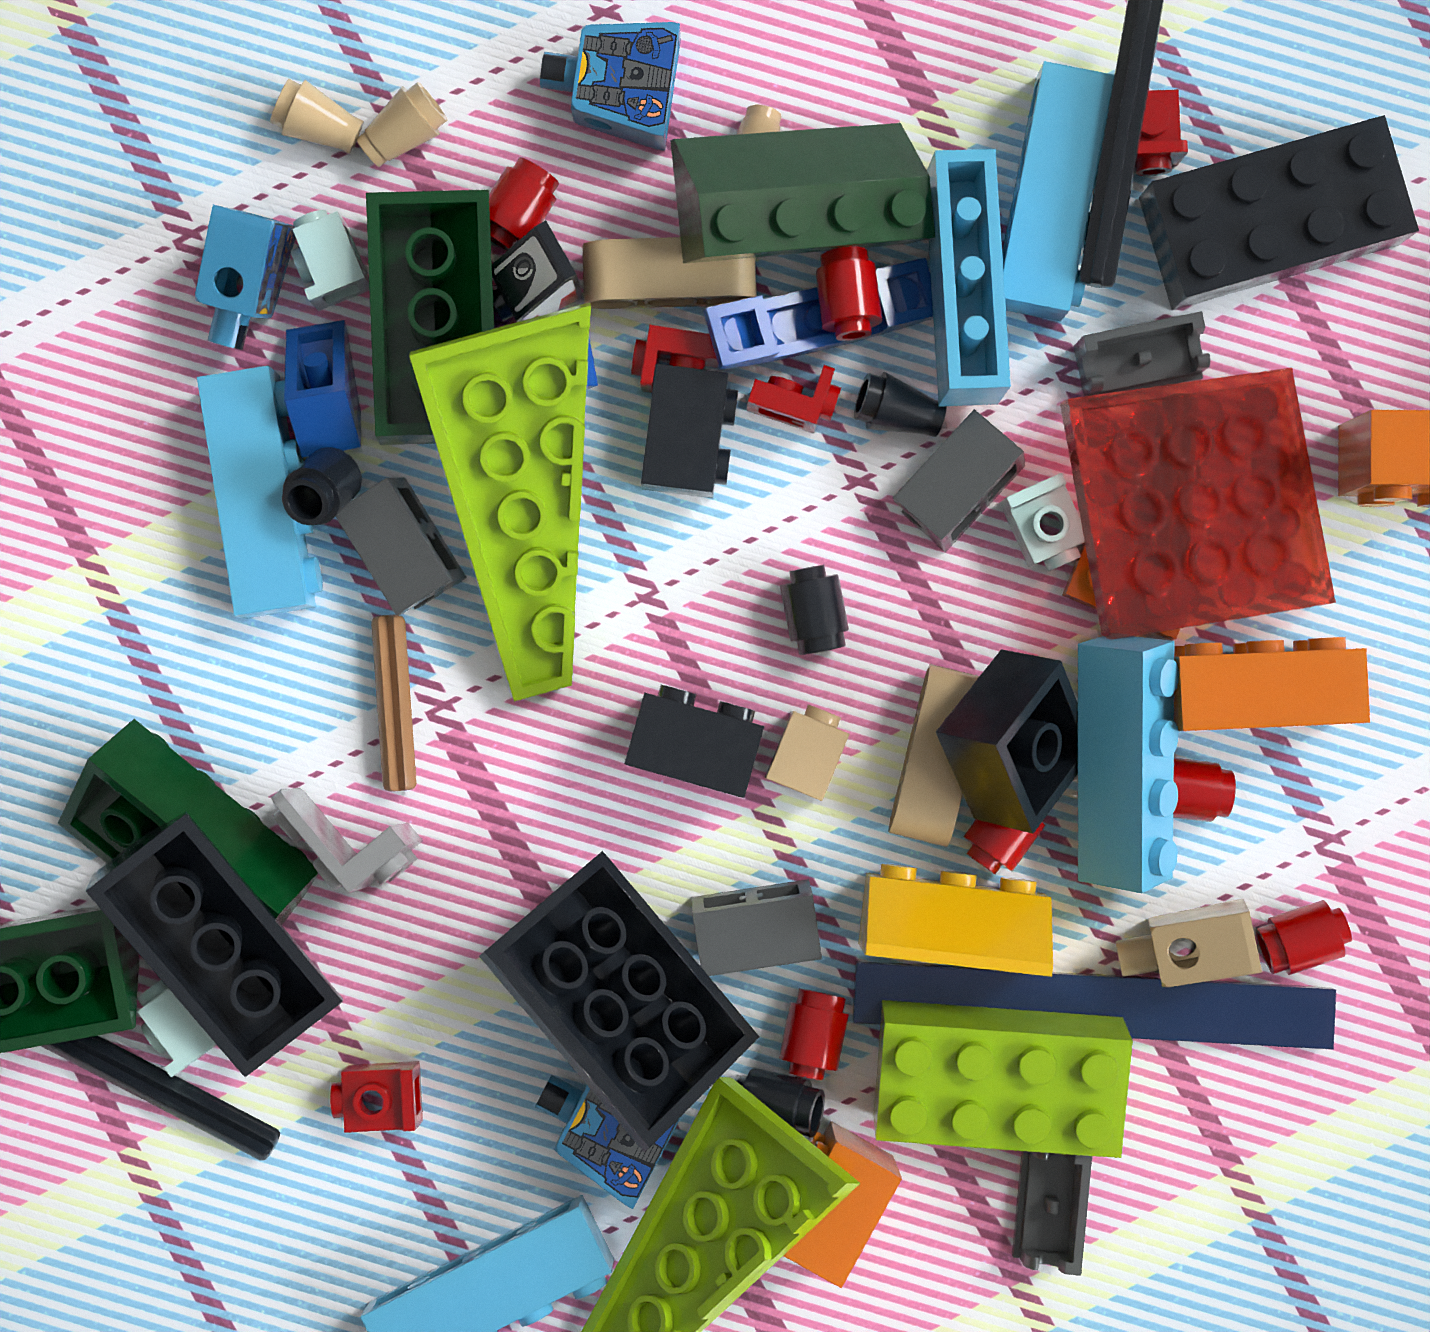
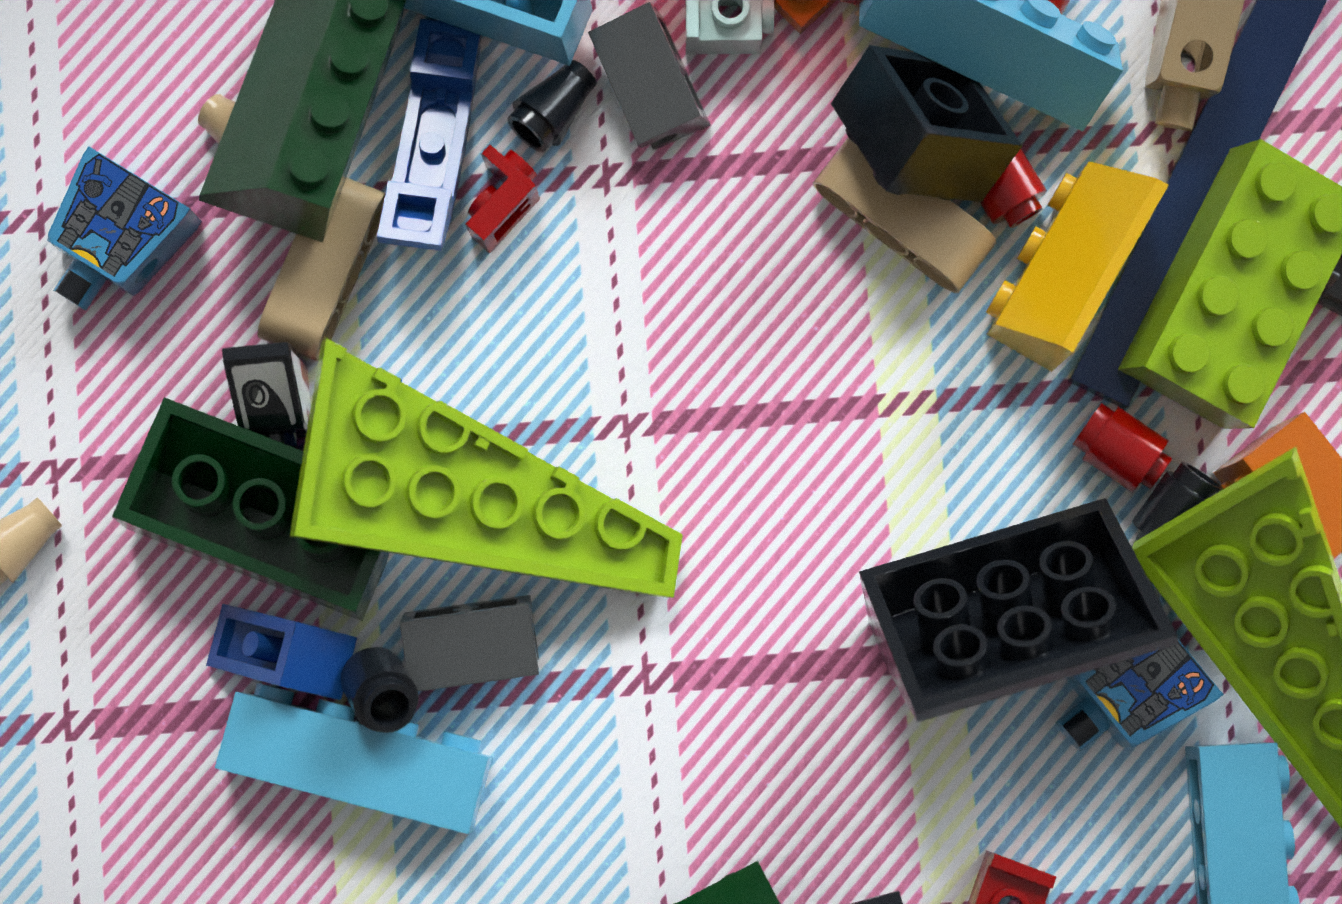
camera: 75 degrees left, 5 degrees down
(247, 247) = (102, 669): dark azure torso -> none
(328, 258) = (156, 589): light aqua brick -> none
(337, 861) = (774, 790): light grey bracket -> none
(393, 703) = (622, 718): medium nougat axle -> none
(402, 125) = (59, 460): tan cone -> none
(520, 202) = (189, 375): red brick -> none
(678, 346) = (403, 283): red bracket -> none
(686, 431) = (485, 314): black brick -> none
(694, 742) = (794, 433): black brick -> none
(756, 927) = (996, 458): dark grey hinge -> none
(808, 752) = (848, 334): tan brick -> none
(814, 610) = (712, 269): black brick -> none
(848, 293) = (422, 101): red brick -> none

